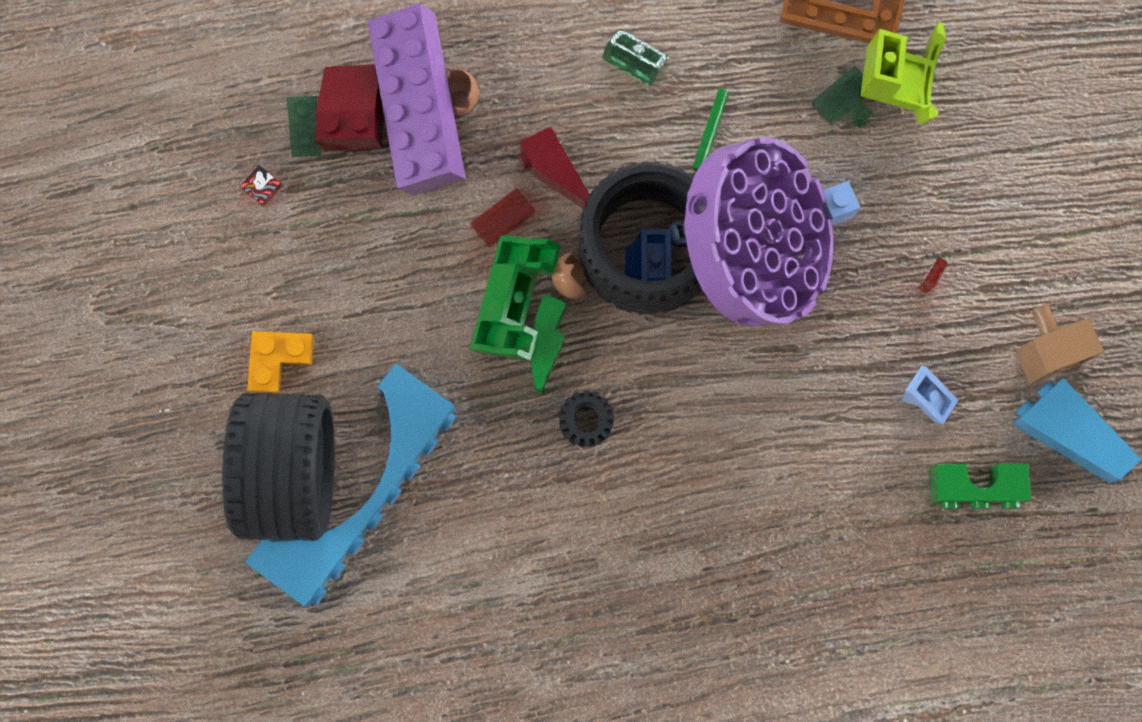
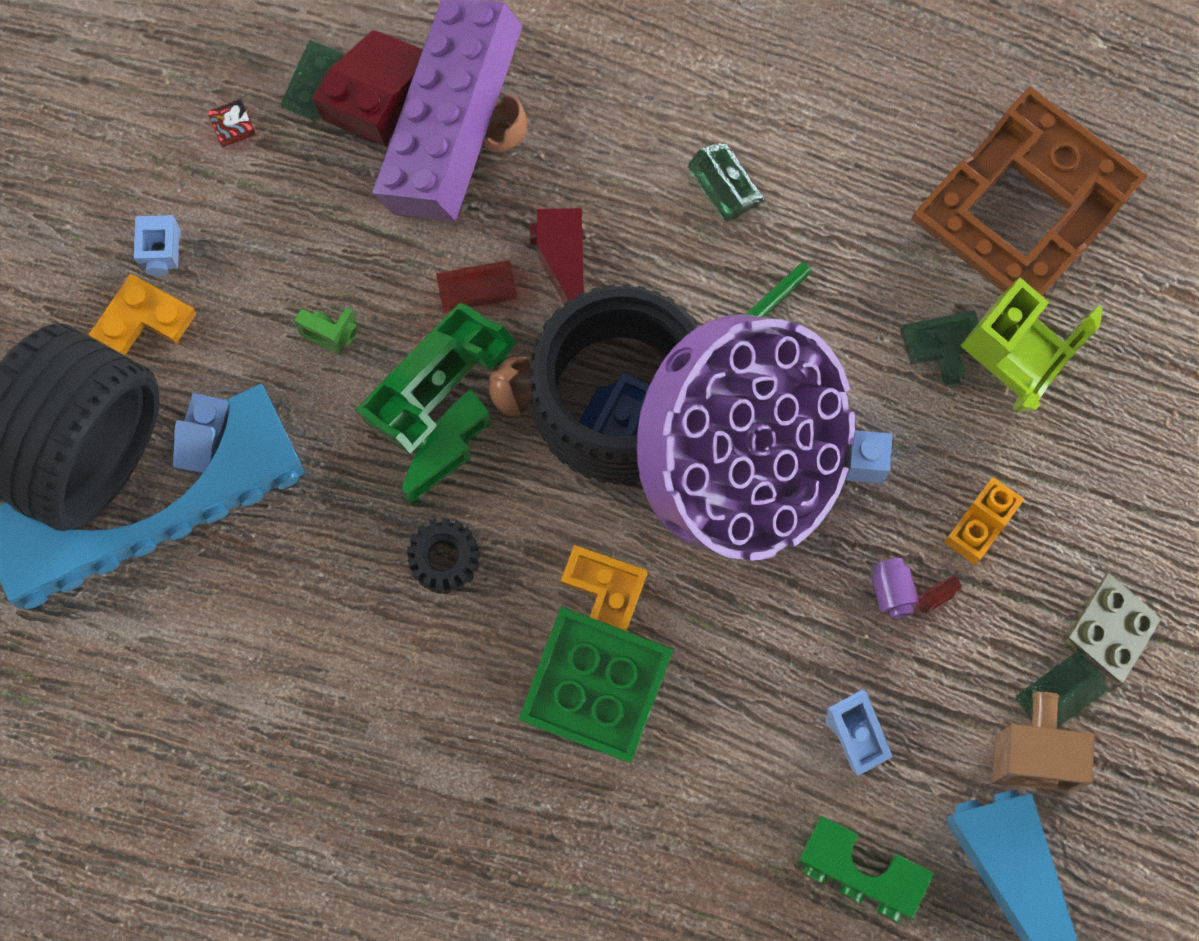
camera: 30 degrees right, 5 degrees down
(256, 292) = (152, 234): none -> light blue brick
(368, 420) = (200, 433): none -> light blue slope
(412, 304) = (322, 331): none -> bright green bracket
(716, 381) = (610, 580): none -> light orange plate
(739, 453) = (596, 684): none -> green plate
(901, 285) = (894, 588): none -> medium lavender brick
(934, 209) = (984, 521): none -> light orange slope
(1046, 288) = (1073, 680): none -> clear green slope
(1055, 239) = (1112, 628): none -> hinge

